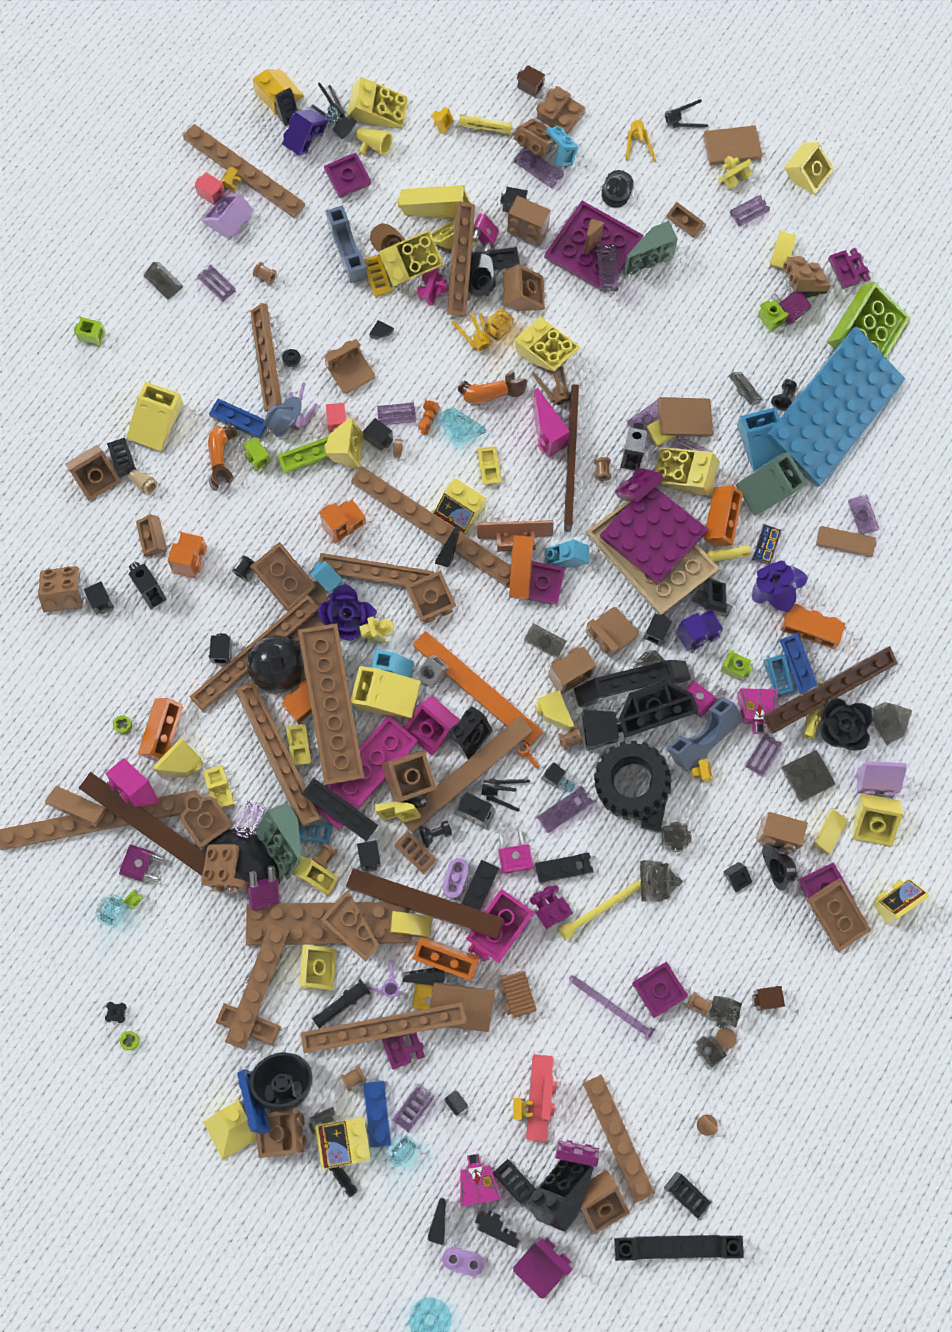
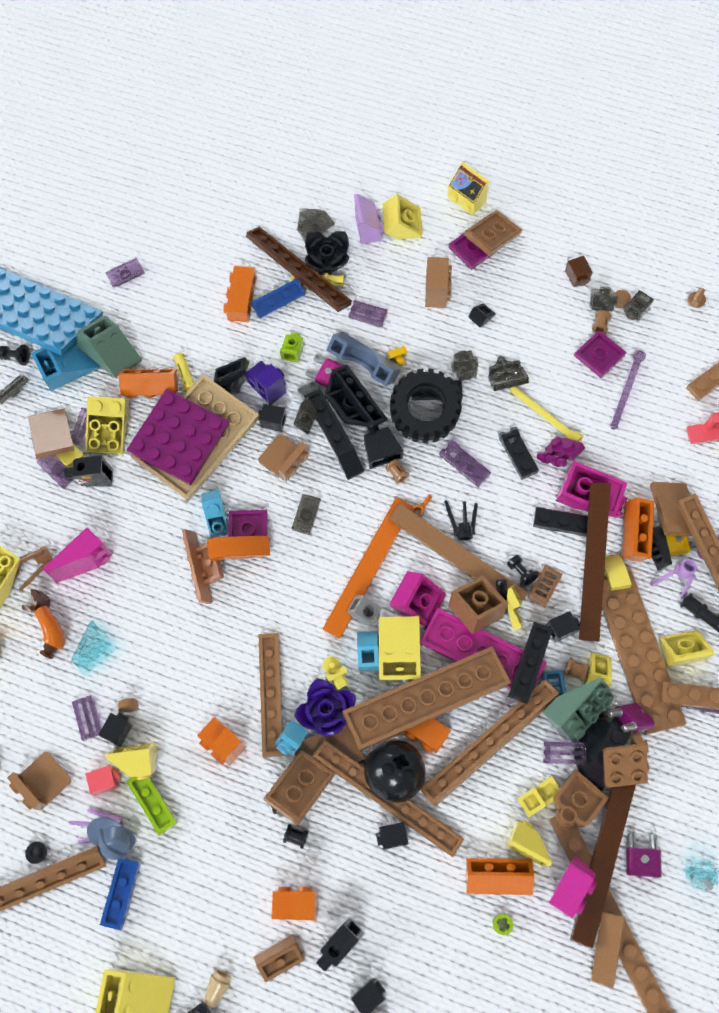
camera: 95 degrees left, 5 degrees down
(133, 899) = (682, 853): lime bush -> none
(216, 442) = (156, 909): piece -> none
(256, 454) = (160, 860): lime brick -> none
(298, 744) = (471, 726): light yellow slope -> none
(350, 926) = (639, 623): medium nougat wing -> none
(430, 597) = (288, 629): medium nougat plate -> none
(431, 408) = (77, 681): orange piece -> none
(431, 524) = (206, 652): medium nougat plate -> none
(447, 552) = (234, 624): black slope -> none
(455, 878) = (558, 543): lavender plate -> none
(460, 505) = (182, 625): slope -> none
(470, 732) = (413, 556): black plate -> none
(475, 810) = (491, 538): black torso -> none
(489, 465) = (131, 609): light yellow slope -> none
(515, 858) = (522, 495): dark pink piece -> none
(518, 995) = (645, 464): medium nougat brick -> none
(554, 711) = (373, 490): light yellow slope -> none
(554, 776) = (437, 475): black piece -> none
(571, 457) = (112, 529): reddish brown tile -> none
(571, 670) = (333, 480): medium nougat brick -> none
(602, 468) = (117, 499): medium nougat bush -> none
(639, 484) = (130, 459): magenta plate -> none
(755, 704) = (326, 322): dark pink torso -> none
(766, 544) = (168, 345): tile -> none
(780, 867) = (466, 281): black piece -> none
(781, 594) = (220, 319): dark purple brick -> none
(785, 672) = (282, 321): dark azure slope -> none
(808, 776) = (377, 277): clear smoke plate -> none
(830, 831) = (419, 253): light yellow slope -> none
(846, 541) = (152, 283): medium nougat tile -> none

